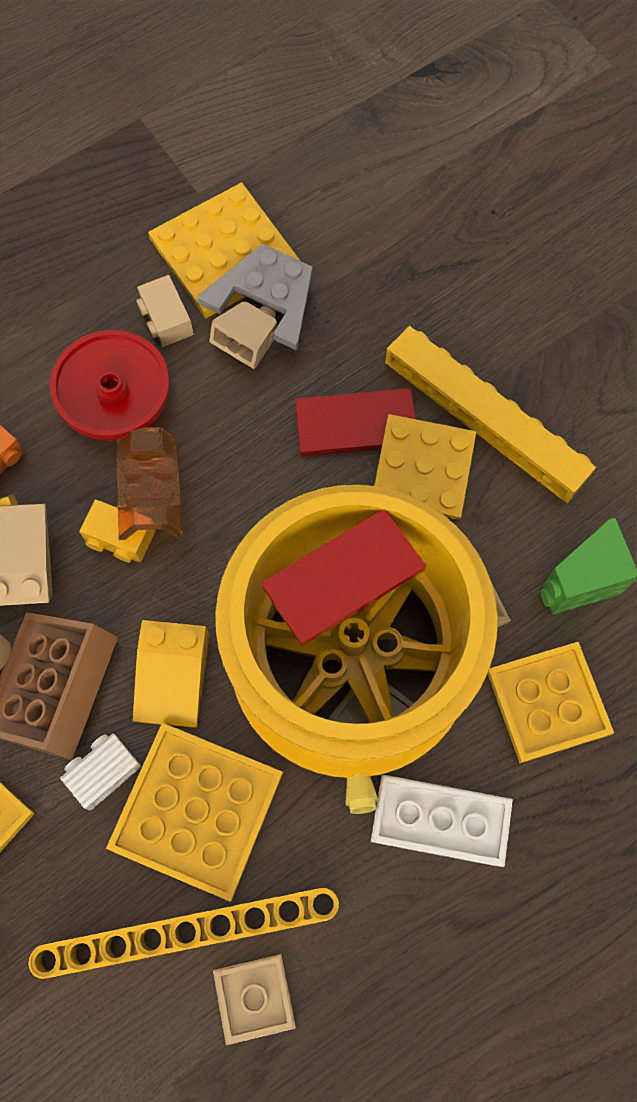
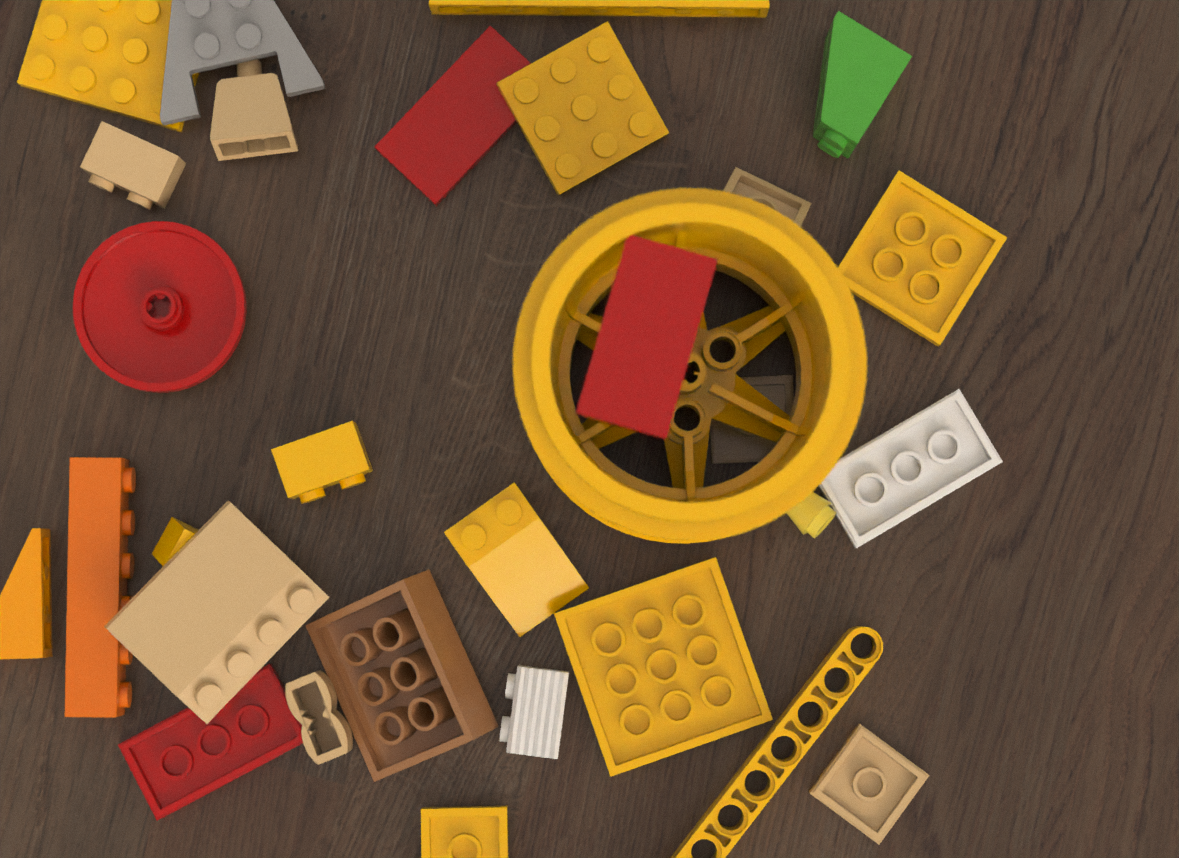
camera: 40 degrees left, 15 degrees up
(148, 483) = (309, 383): clear orange piece -> none

